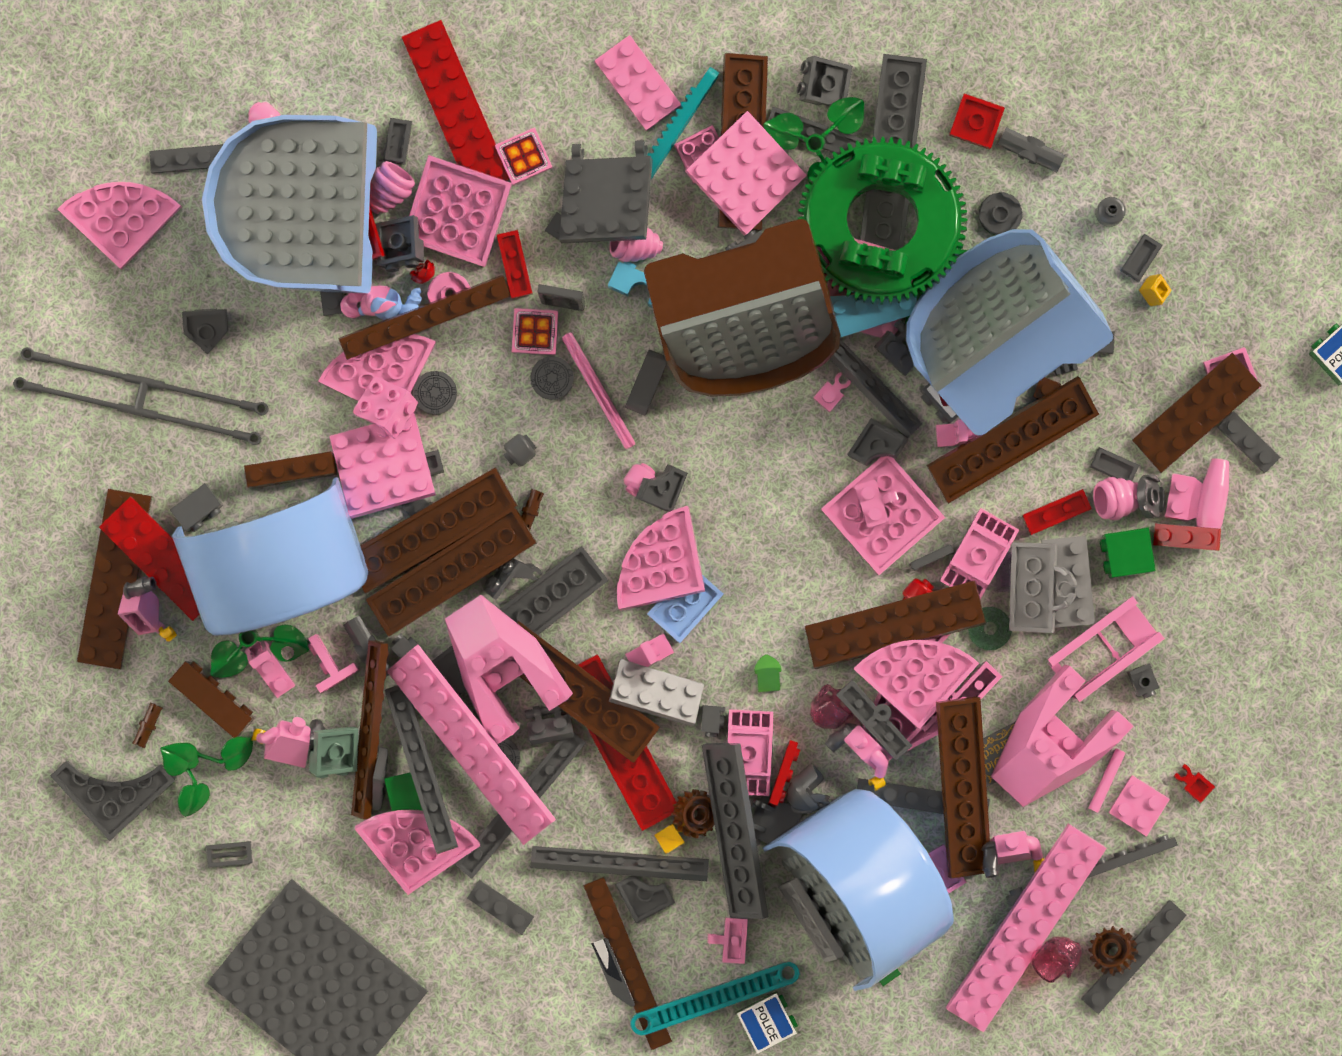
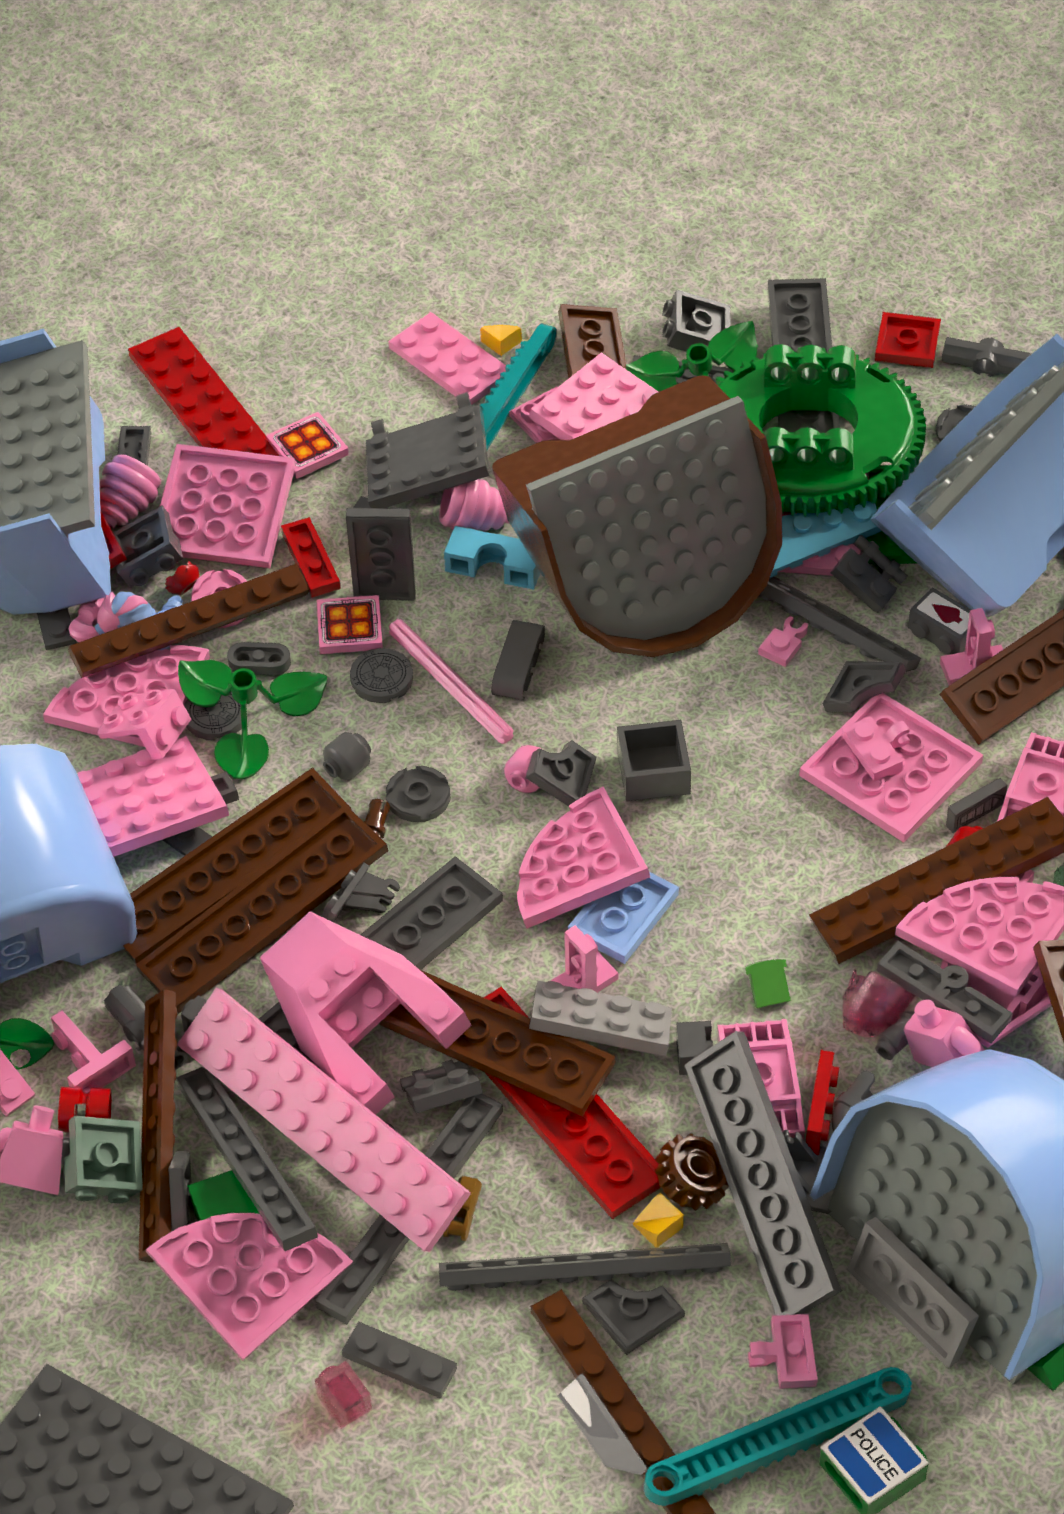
camera: 10 degrees left, 35 degrees down
(325, 708) = (97, 1102): none -> red wheel
(433, 371) = (208, 680): none -> green plant
(464, 928) = (343, 1394): none -> clear pink brick
(469, 352) = (259, 657): none -> dark grey plate
(554, 805) = (467, 1210): none -> pearl gold bar
(564, 484) = (421, 802): none -> dark grey tile
(678, 68) = (501, 337): none -> yellow slope
(724, 490) = (653, 760): none -> dark grey piece

